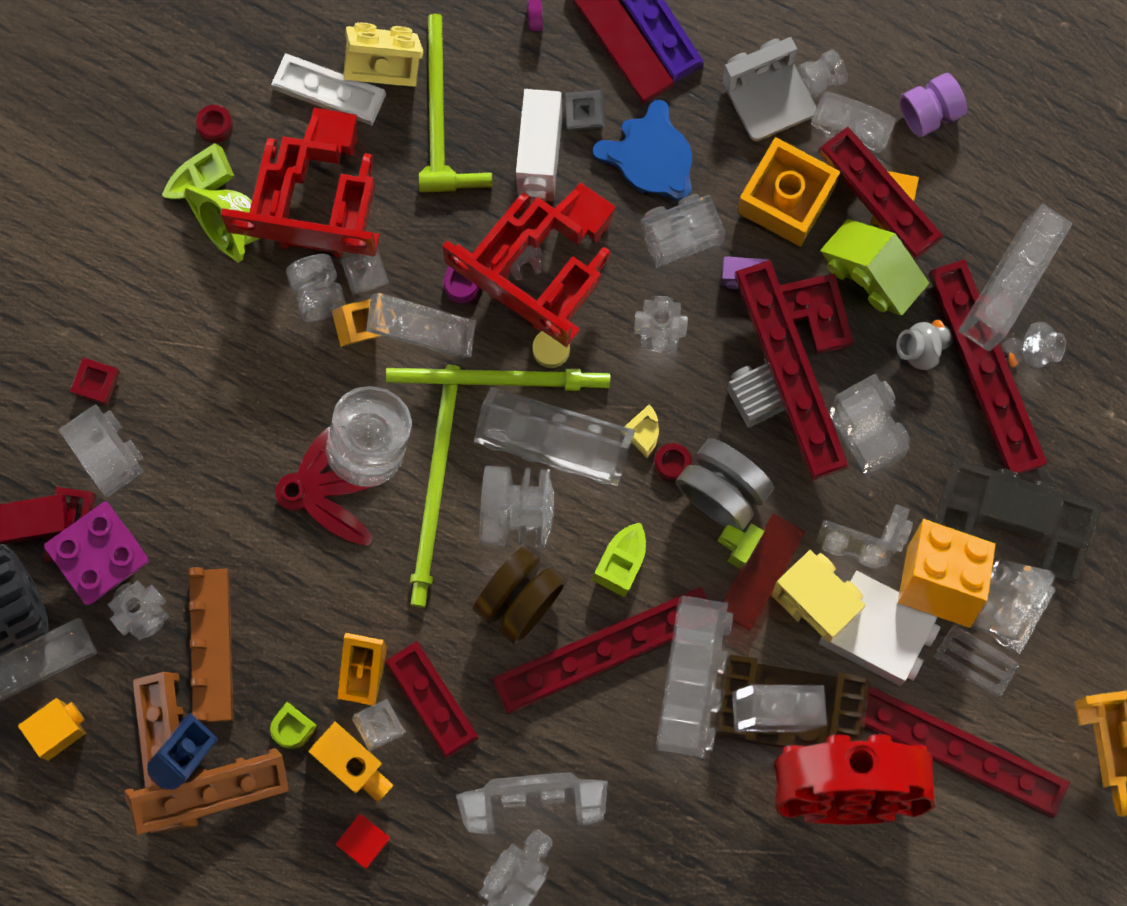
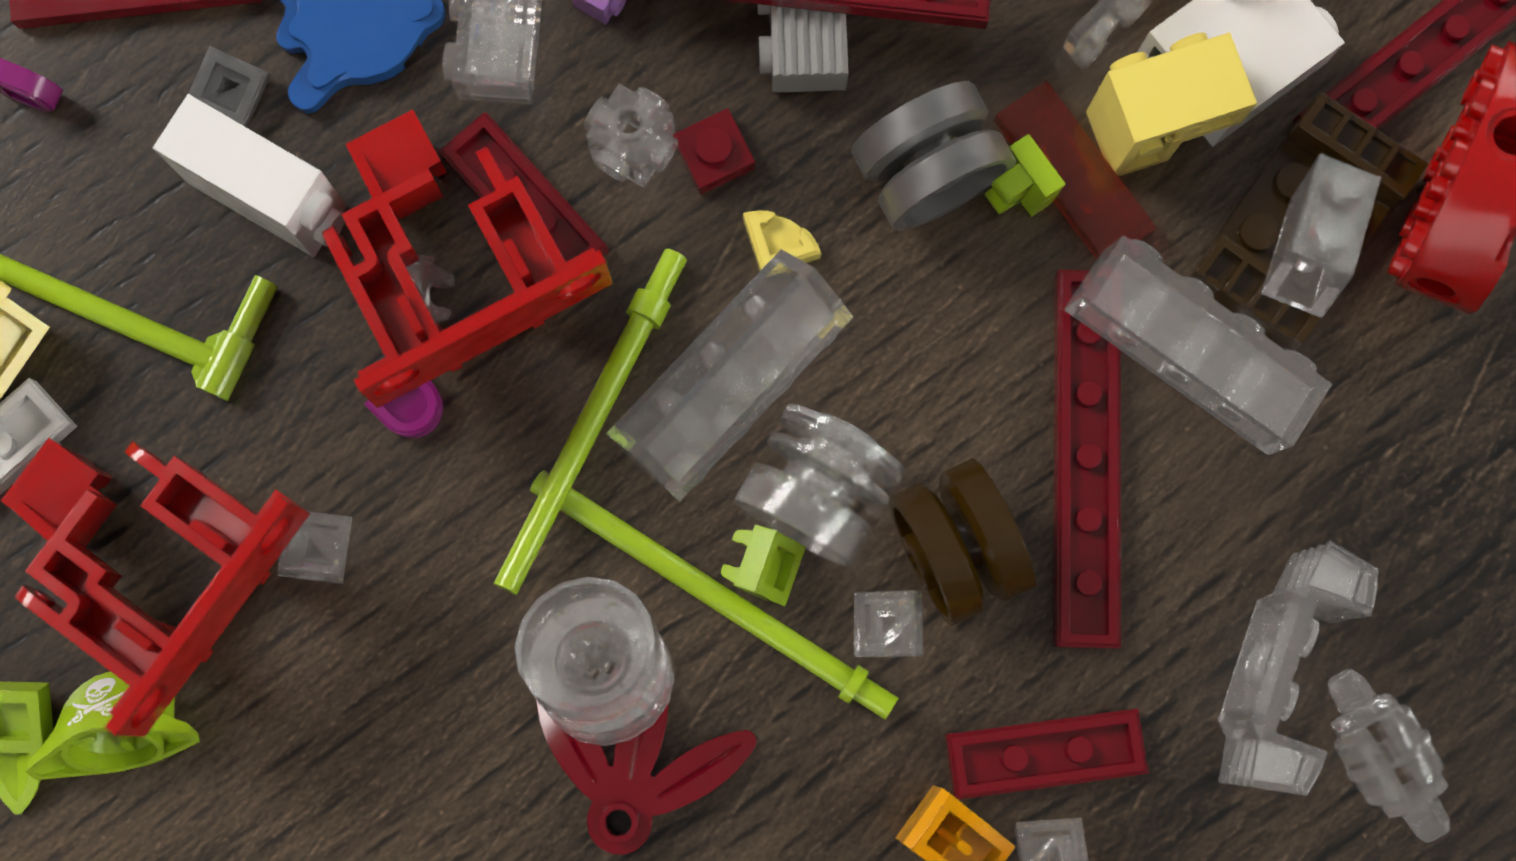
camera: 70 degrees left, 5 degrees up
(315, 285) = (296, 633): clear wheel -> none
(352, 323) = (398, 591): light orange brick -> none
(420, 325) = (453, 498): clear plate -> none
(461, 582) = (888, 624): none -> clear tile
(462, 504) = (767, 564): none -> lime tile
(549, 351) = (584, 323): light yellow tile -> none
(596, 309) = (564, 224): none -> dark red tile
(622, 560) = (966, 367): lime plate -> none
(671, 461) = (847, 222): dark red tile -> none
(677, 373) = (714, 151): none -> dark red plate

